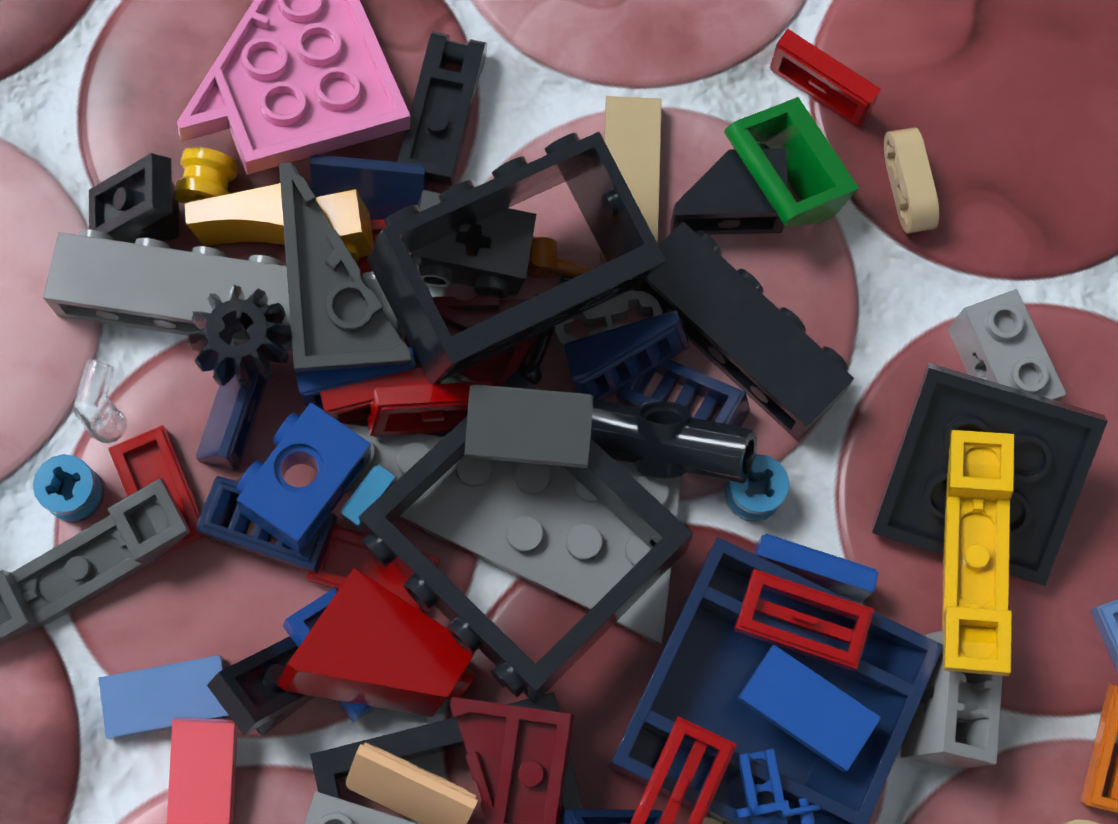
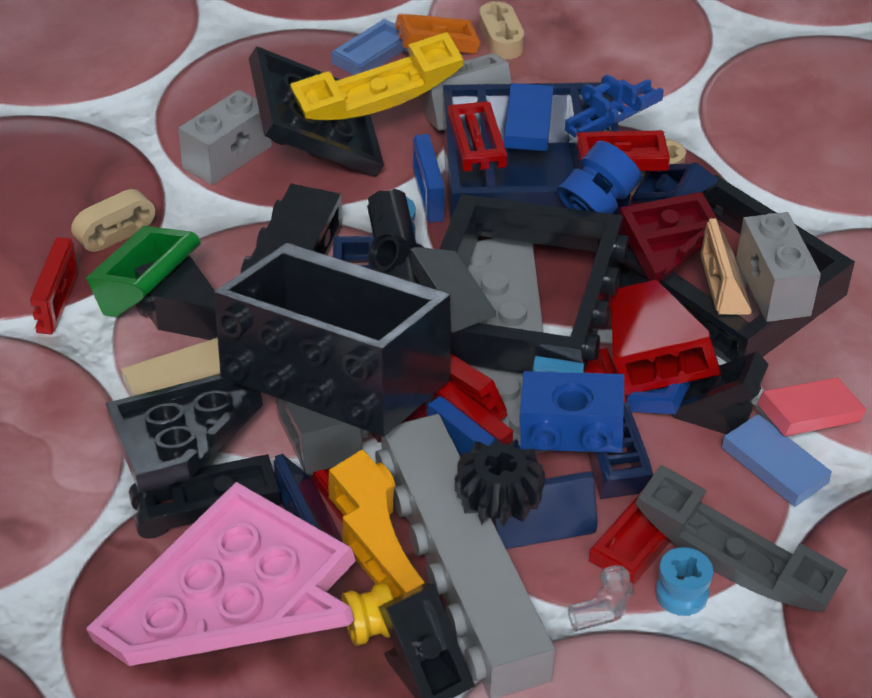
camera: 115 degrees left, 30 degrees down
(331, 307) = (419, 449): dark grey wing -> none
(525, 97) = (179, 427): none -> black plate
(612, 701) = (604, 177): none -> blue wheel

